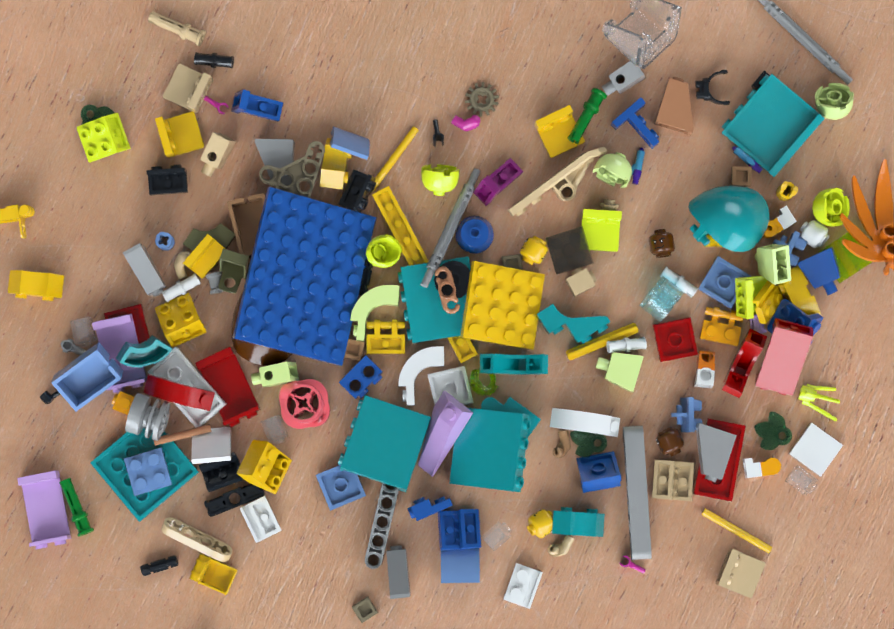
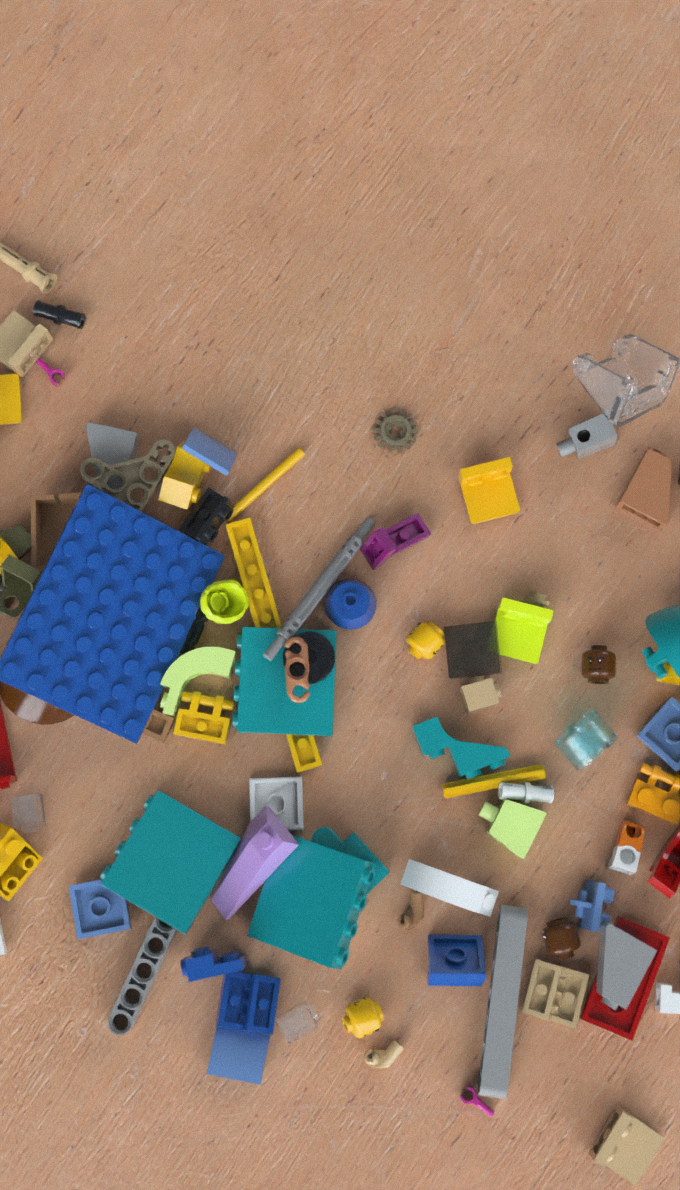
camera: 10 degrees right, 5 degrees down
(222, 147) = (34, 430): tan torso -> none
(256, 105) = (101, 381): blue bracket -> none
(282, 374) = (46, 738): yellowish green torso -> none
(289, 391) = (57, 766): coral piece -> none
(357, 373) = (156, 758): blue brick -> none
(364, 609) = (95, 1088): dark tan tile -> none
(398, 572) = (150, 1049): light grey slope -> none
(415, 364) = (240, 759): white arch -> none
(437, 135) = (327, 466): black hand -> none
(439, 178) = (319, 521): neon yellow cylinder -> none
(468, 124) = (369, 459): dark pink arm -> none
(478, 387) = (313, 809): clear neon green piece -> none
(502, 305) = (368, 705): yellow plate -> none
(512, 261) = (392, 654): dark tan tile -> none
(514, 364) = (368, 788): teal arch -> none
(523, 585) = (320, 1099): white plate -> none
(567, 177) = (489, 552): tan piece -> none
(578, 523) = (413, 1027): teal brick -> none
(586, 443) = (445, 917): clear green plate -> none
(590, 108) = (536, 468): green pin -> none
(613, 169) = (552, 554): yellowish green cylinder -> none
(637, 123) = (594, 500): blue bracket -> none
(637, 167) = (583, 557): piece -> none
(675, 339) = (593, 798): red tile -> none
(679, 281) = (613, 719): white pin -> none
(736, 530) = (631, 1082): yellow bar -> none

